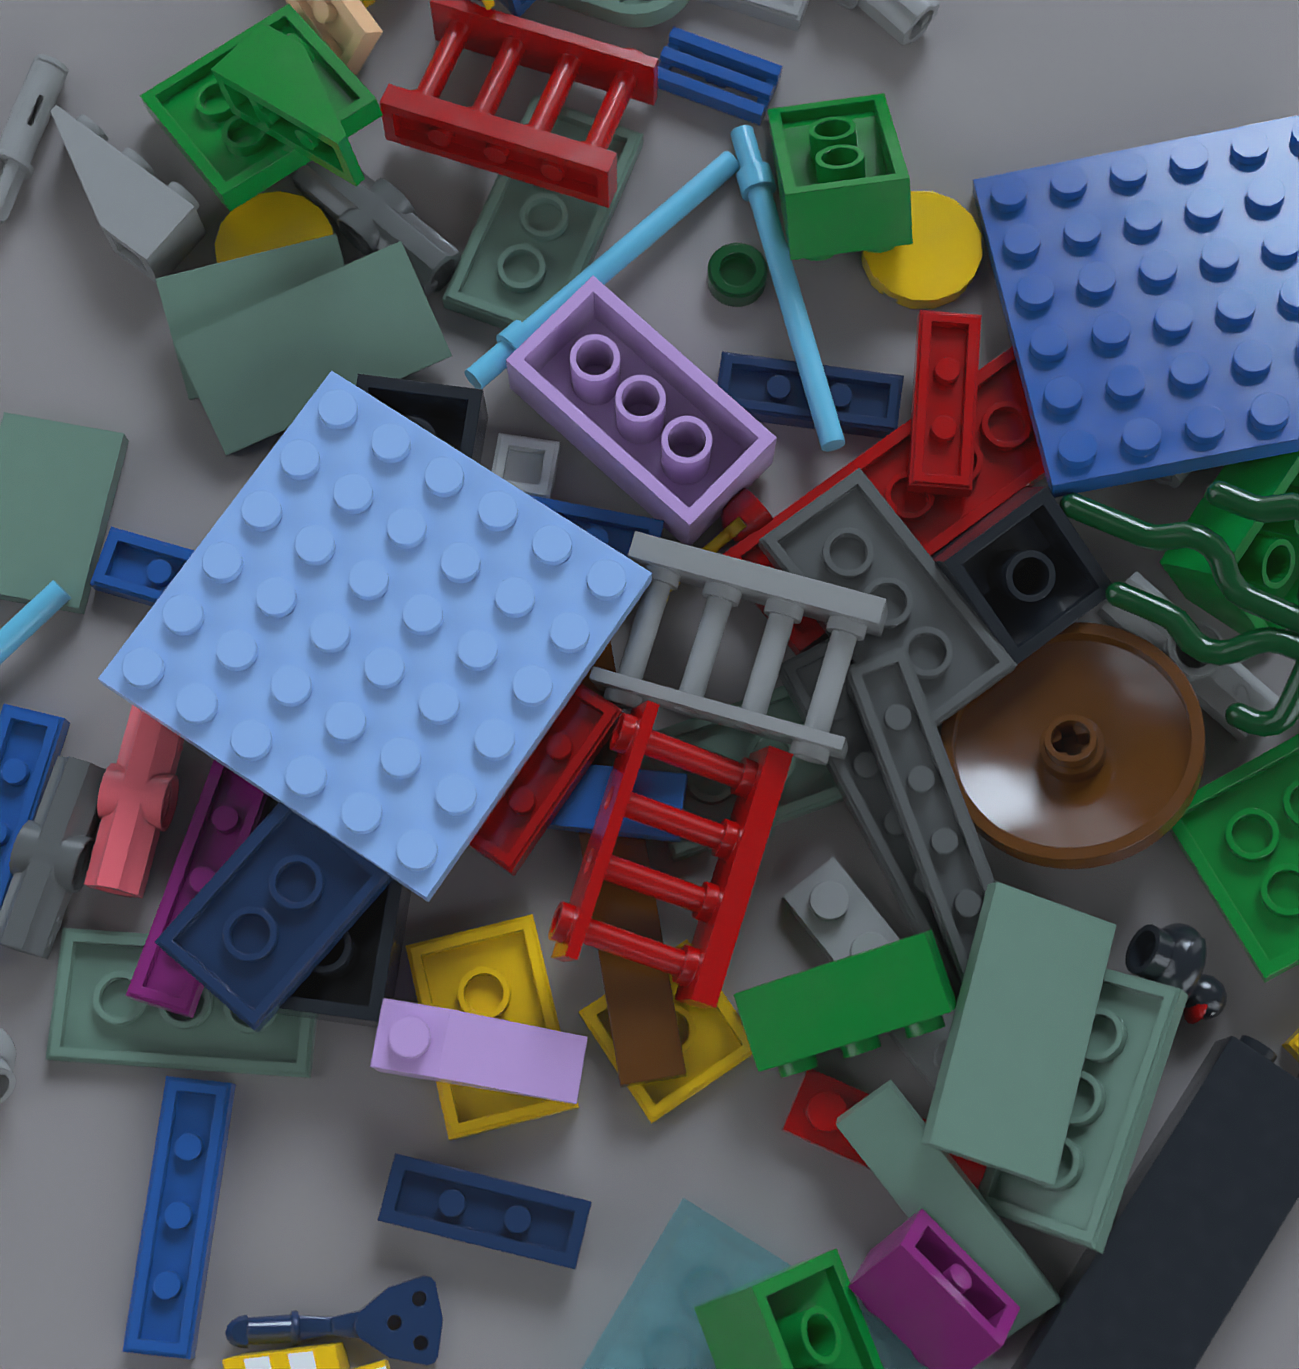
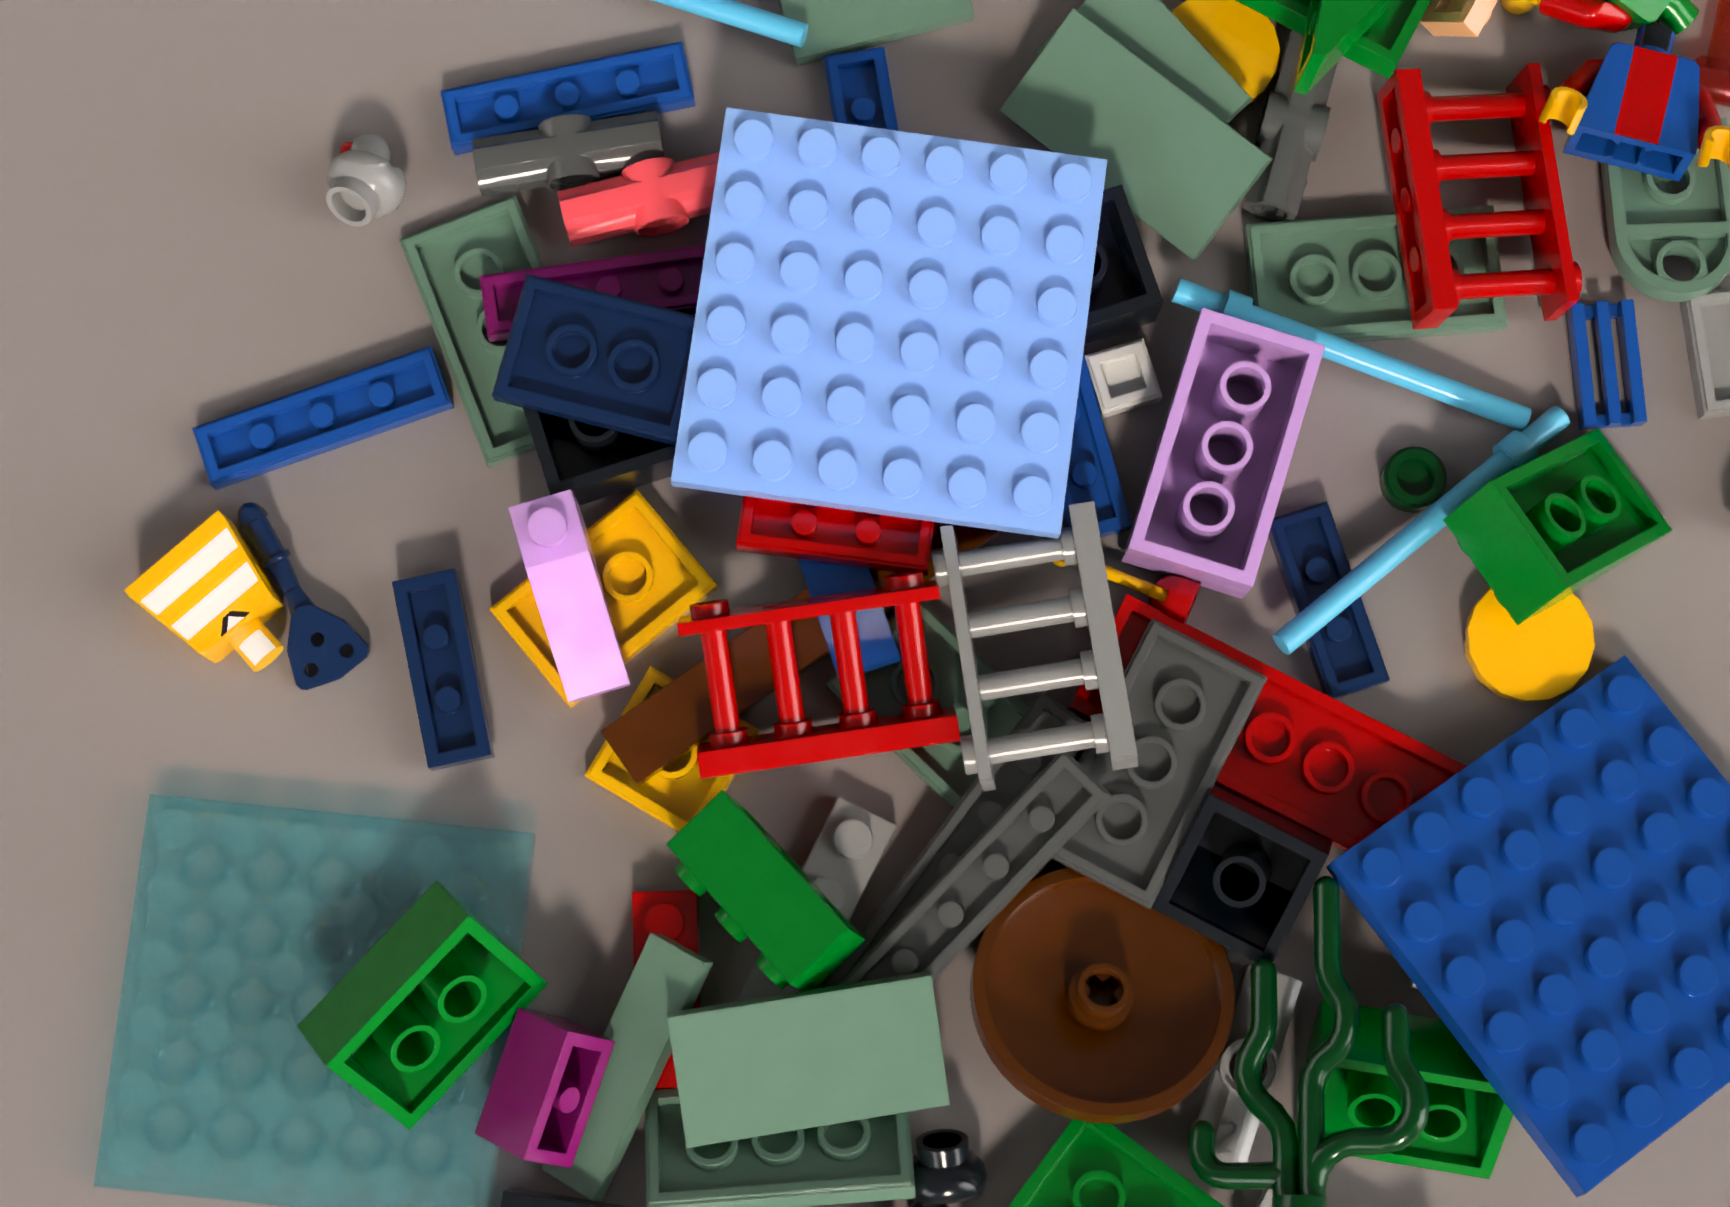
camera: 65 degrees right, 5 degrees up
(944, 403) = (1375, 727): red tile -> none

